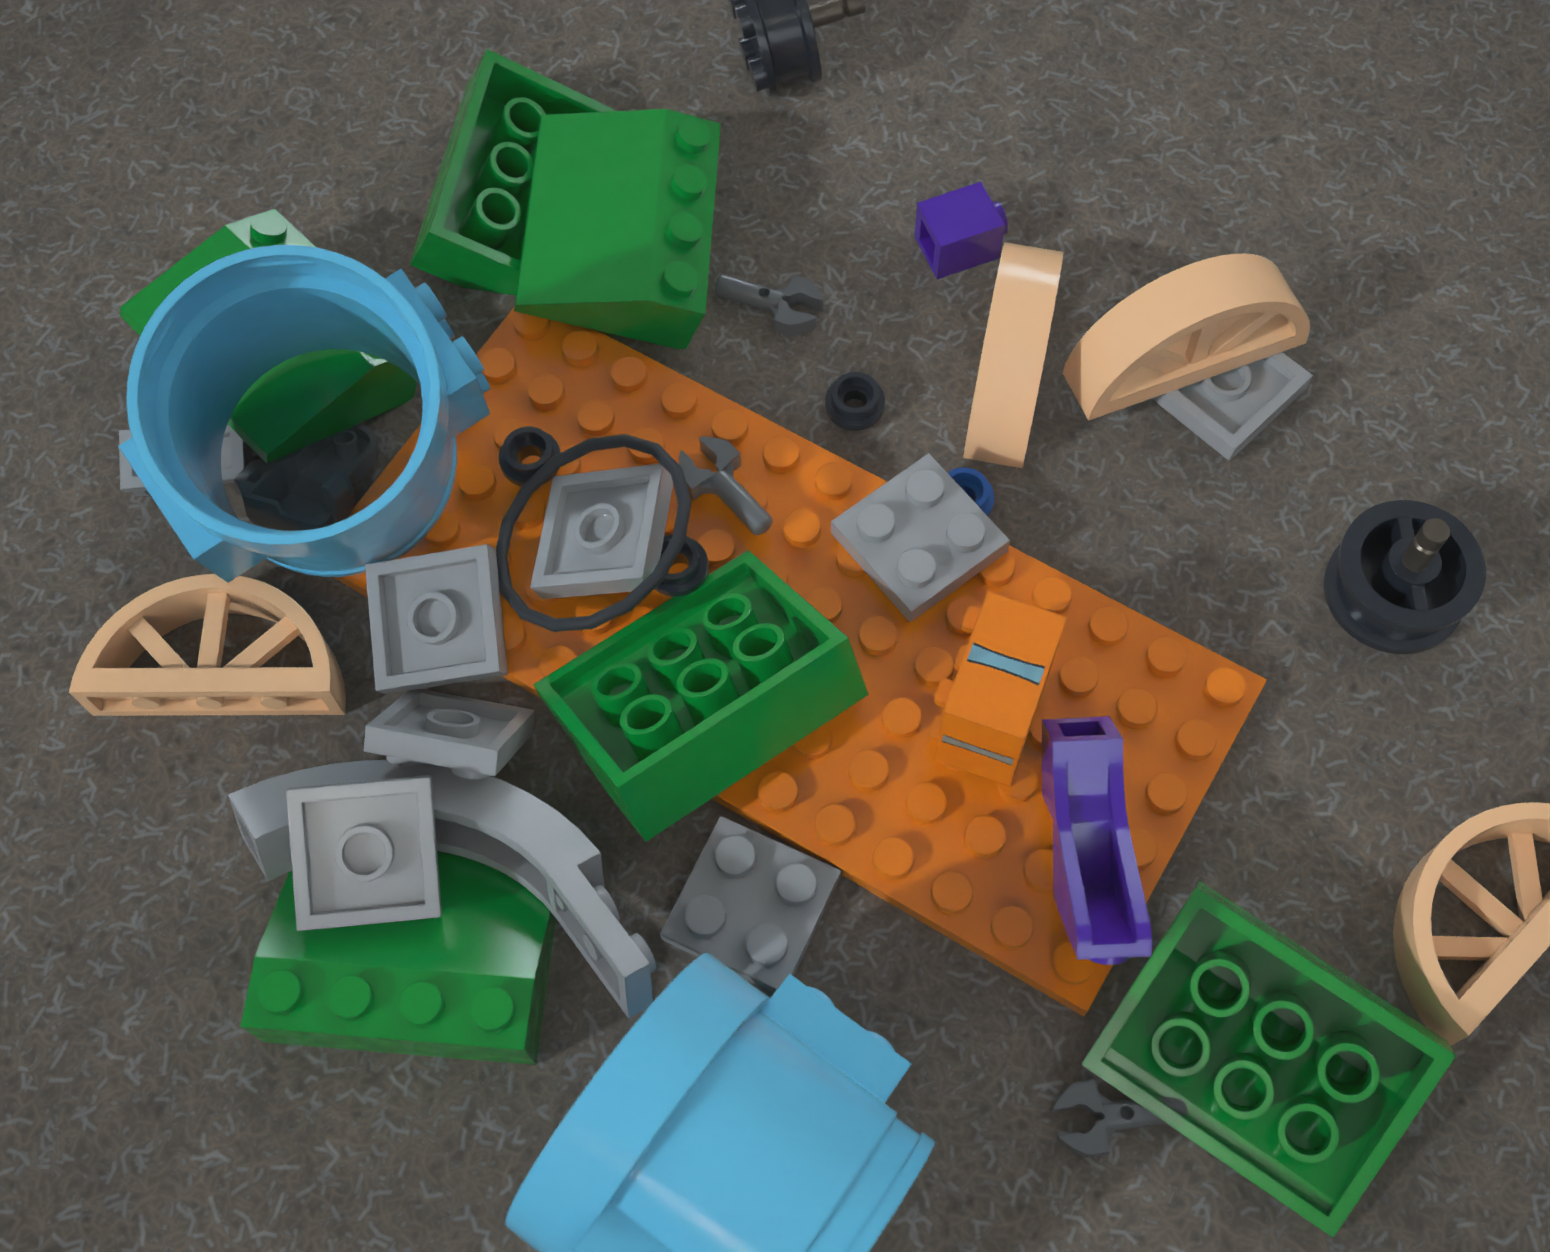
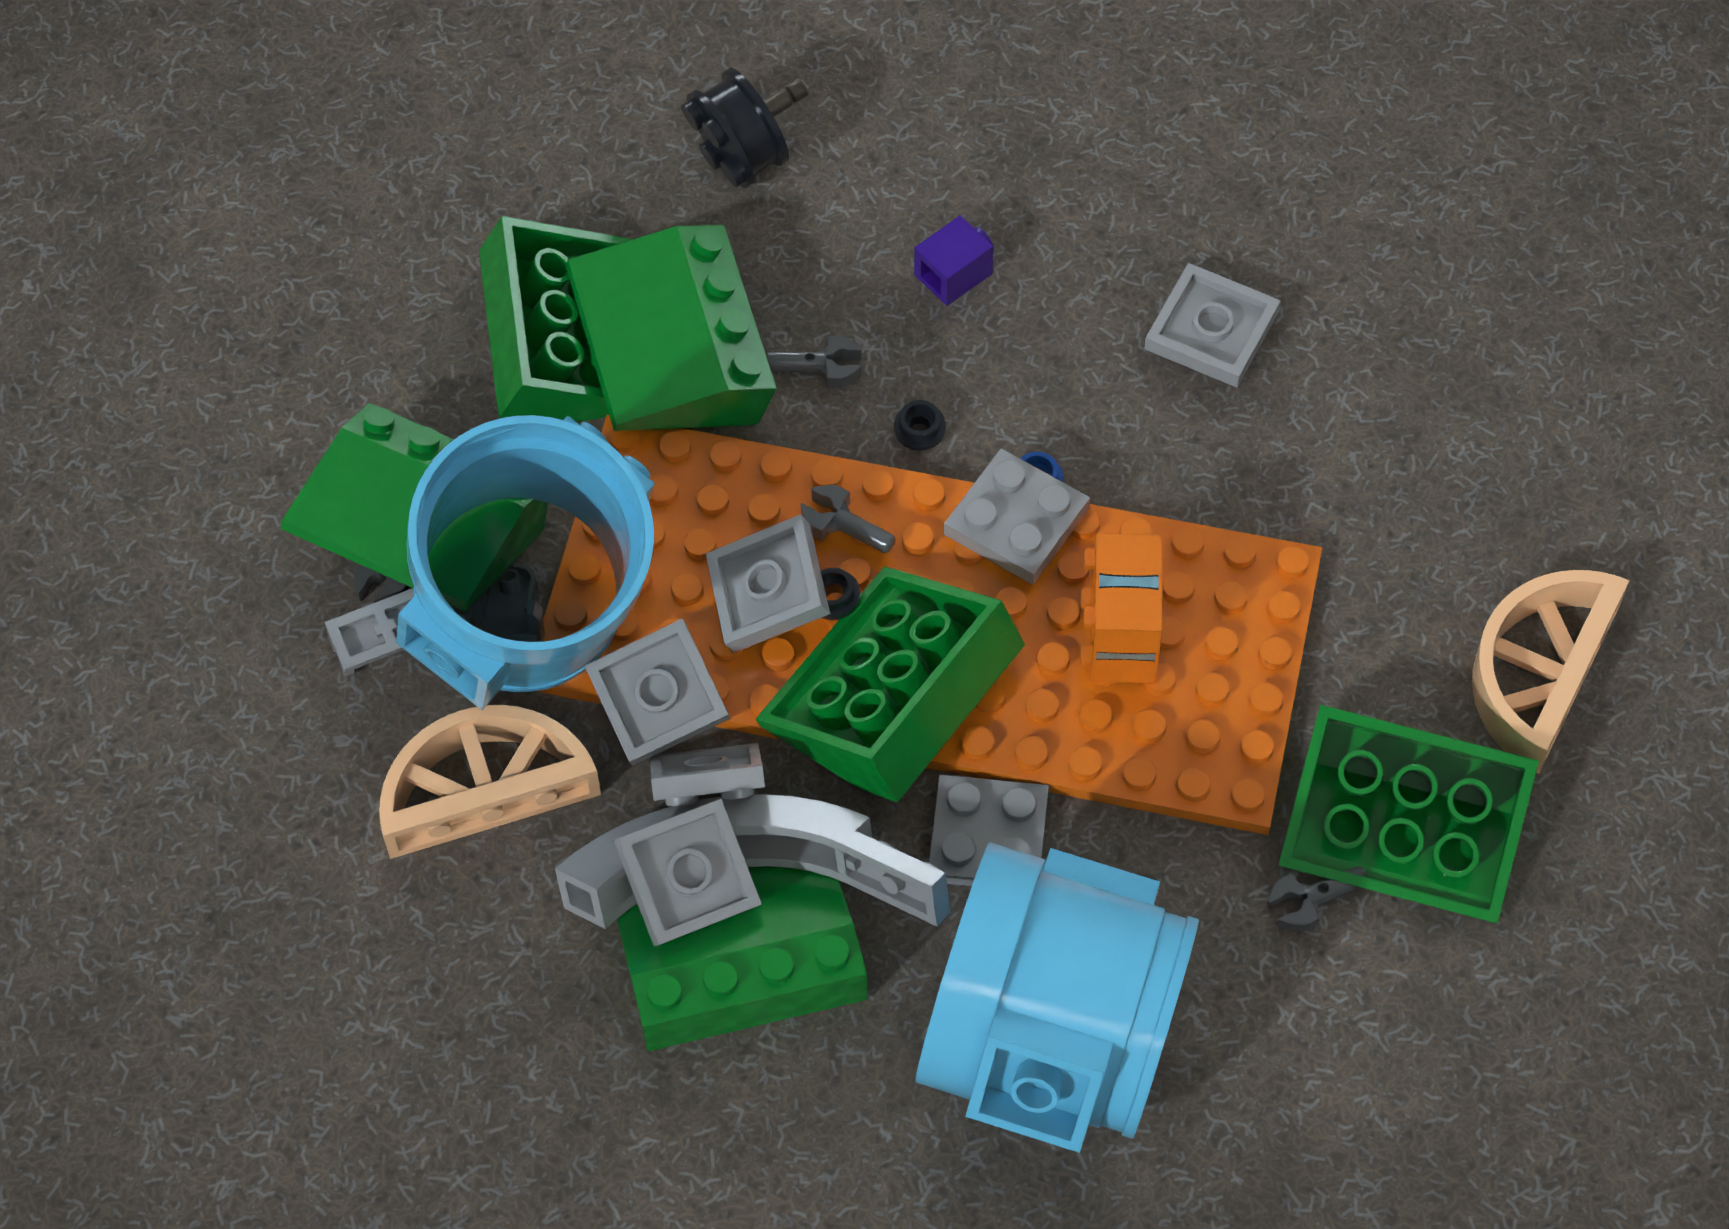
camera: 20 degrees left, 5 degrees down
(524, 443) = (677, 532): black plate -> none
(643, 588) = (808, 637): black piece -> none
(1013, 355) = (1038, 348): light nougat window -> none
(1093, 850) = (1238, 707): dark purple arch -> none
(1185, 331) = (1170, 295): light nougat window -> none
(1404, 577) = (1400, 438): black wheel -> none

